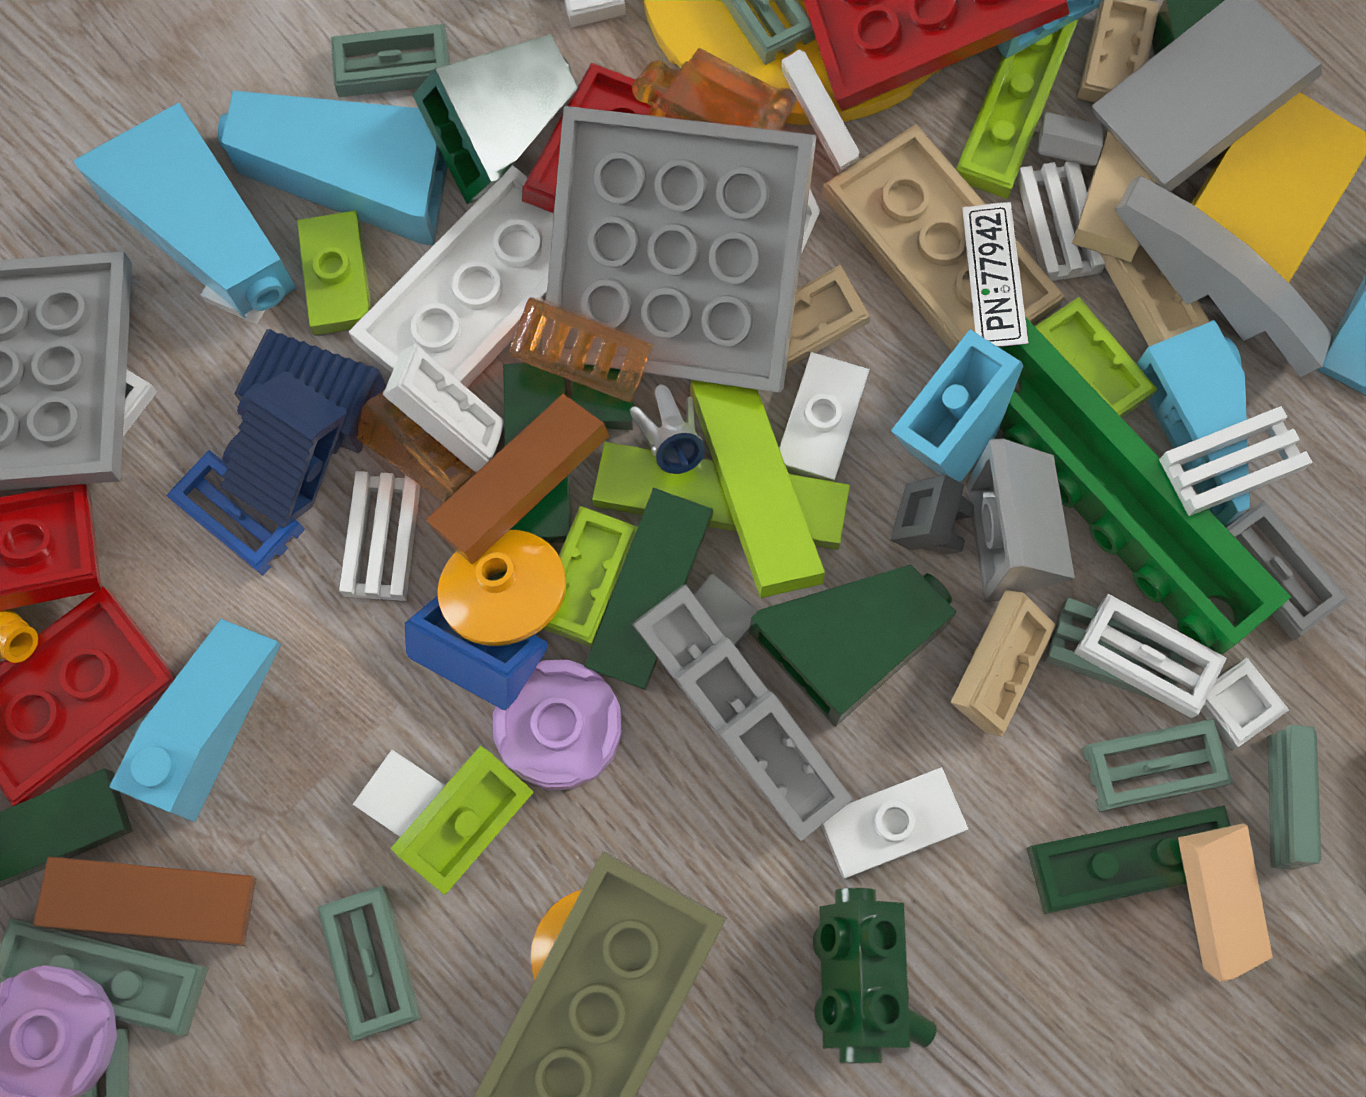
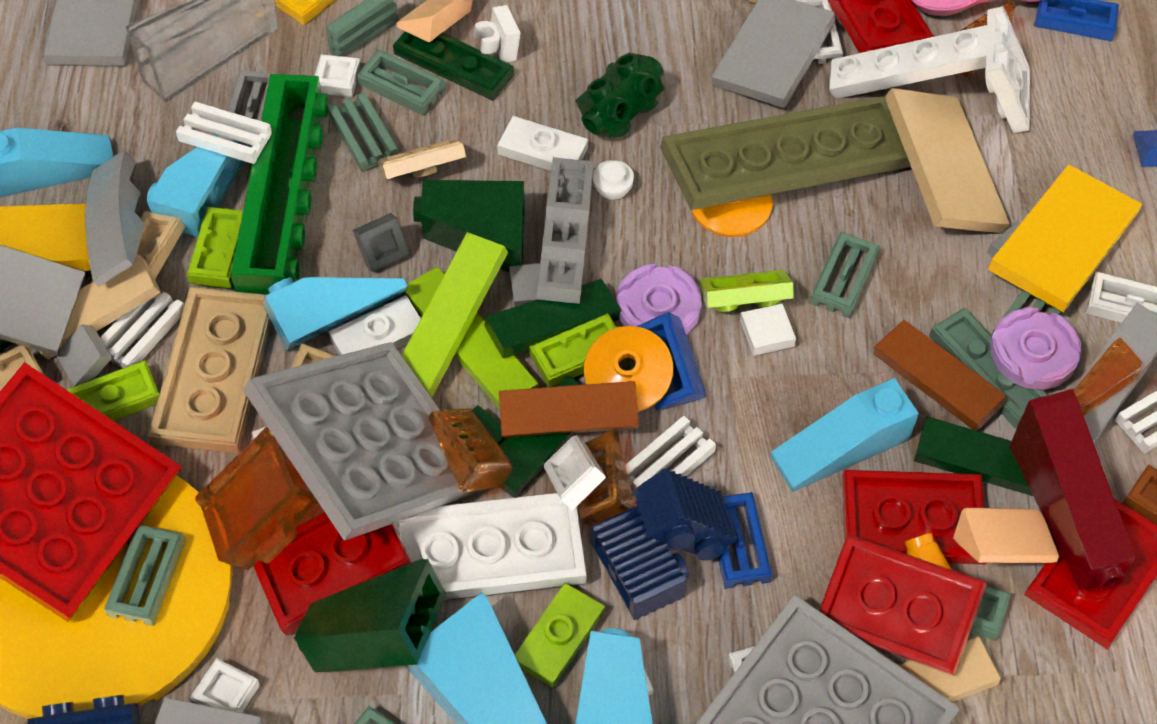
camera: 140 degrees left, 15 degrees down
(675, 442) = (465, 359): piece -> none
(762, 848) = (613, 179): none -> white plate
(820, 111) = (196, 470): white tile -> none
(898, 361) = (320, 304): none -> medium azure slope
(960, 407) = (315, 253): medium azure slope -> none
(995, 274) = (215, 312): white sticker -> none
(1018, 520) = (351, 196): light grey slope -> none
(1111, 943) = (501, 34): none -> white tile
(1137, 676) = (361, 134): white tile -> none

